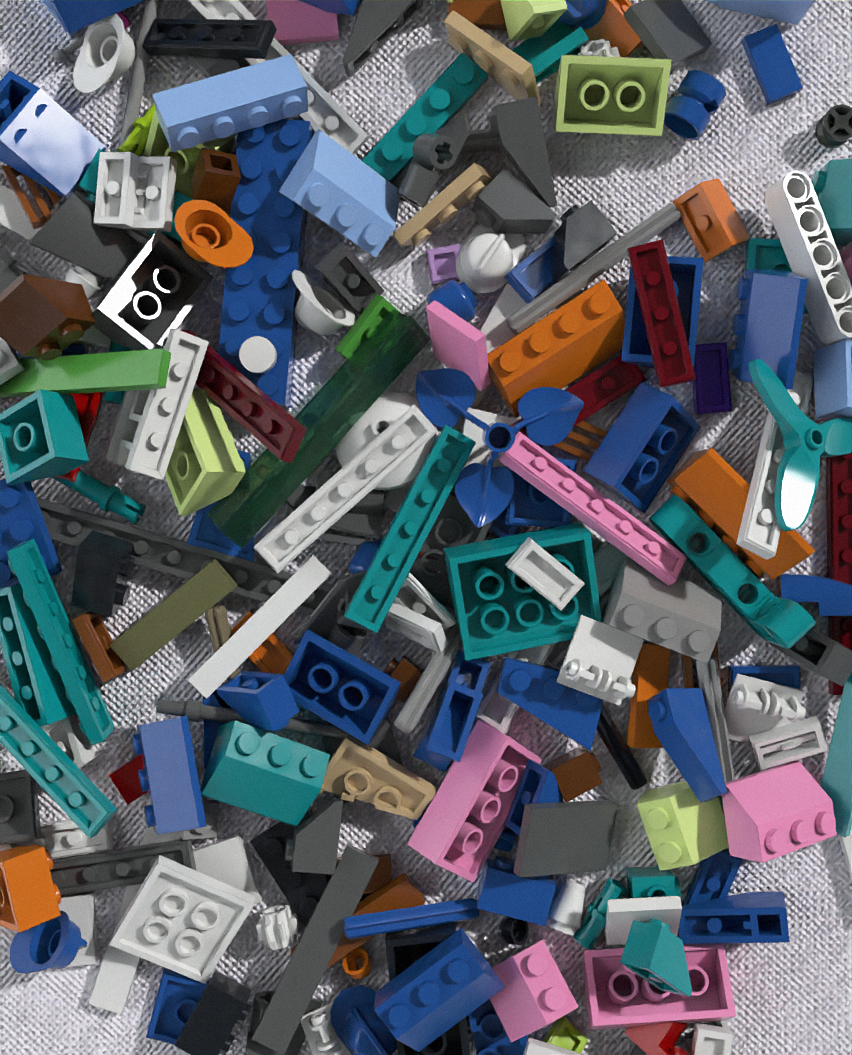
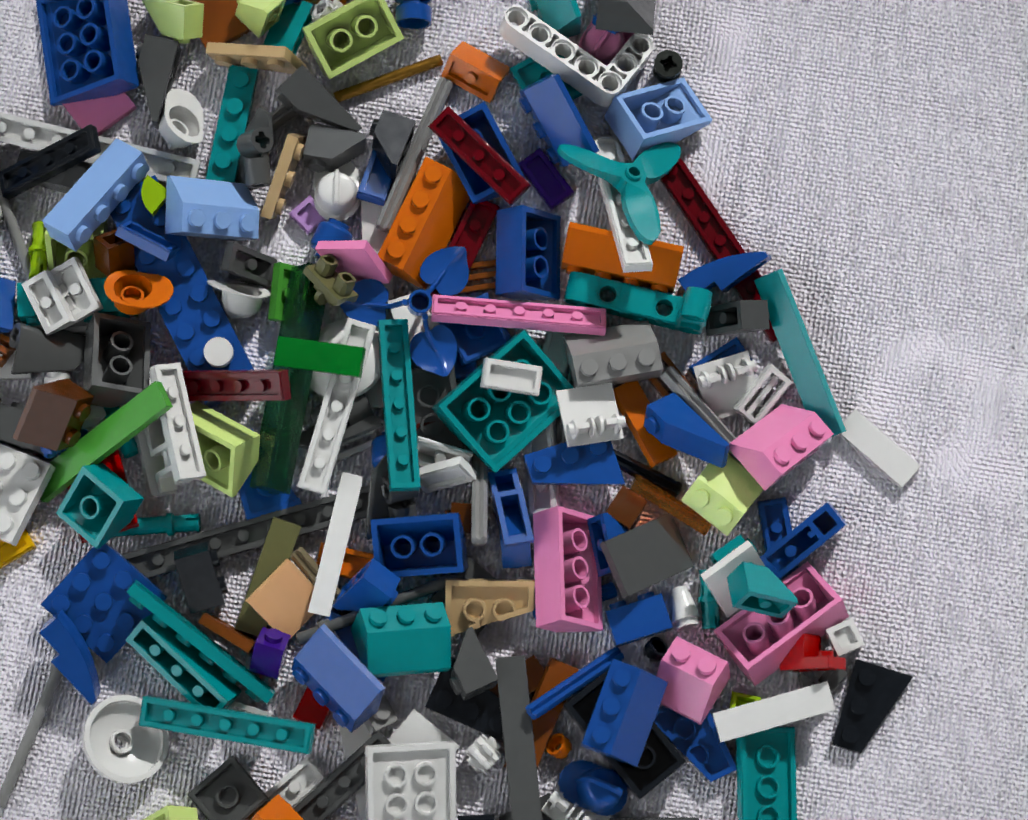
camera: 30 degrees left, 10 degrees down
(126, 694) = (269, 652): none -> dark purple brick
(173, 649) = (284, 599): none -> light nougat tile
(254, 187) = (147, 240): none -> blue tile
(291, 141) = (153, 195): none -> lime tile
(358, 428) = (319, 356): none -> green tile
(376, 79) = (182, 119): none -> white piece
(417, 356) = (330, 285): none -> olive hips
(617, 170) = (388, 78): none -> pearl gold bar
(621, 797) = (669, 504): none -> clear orange tile

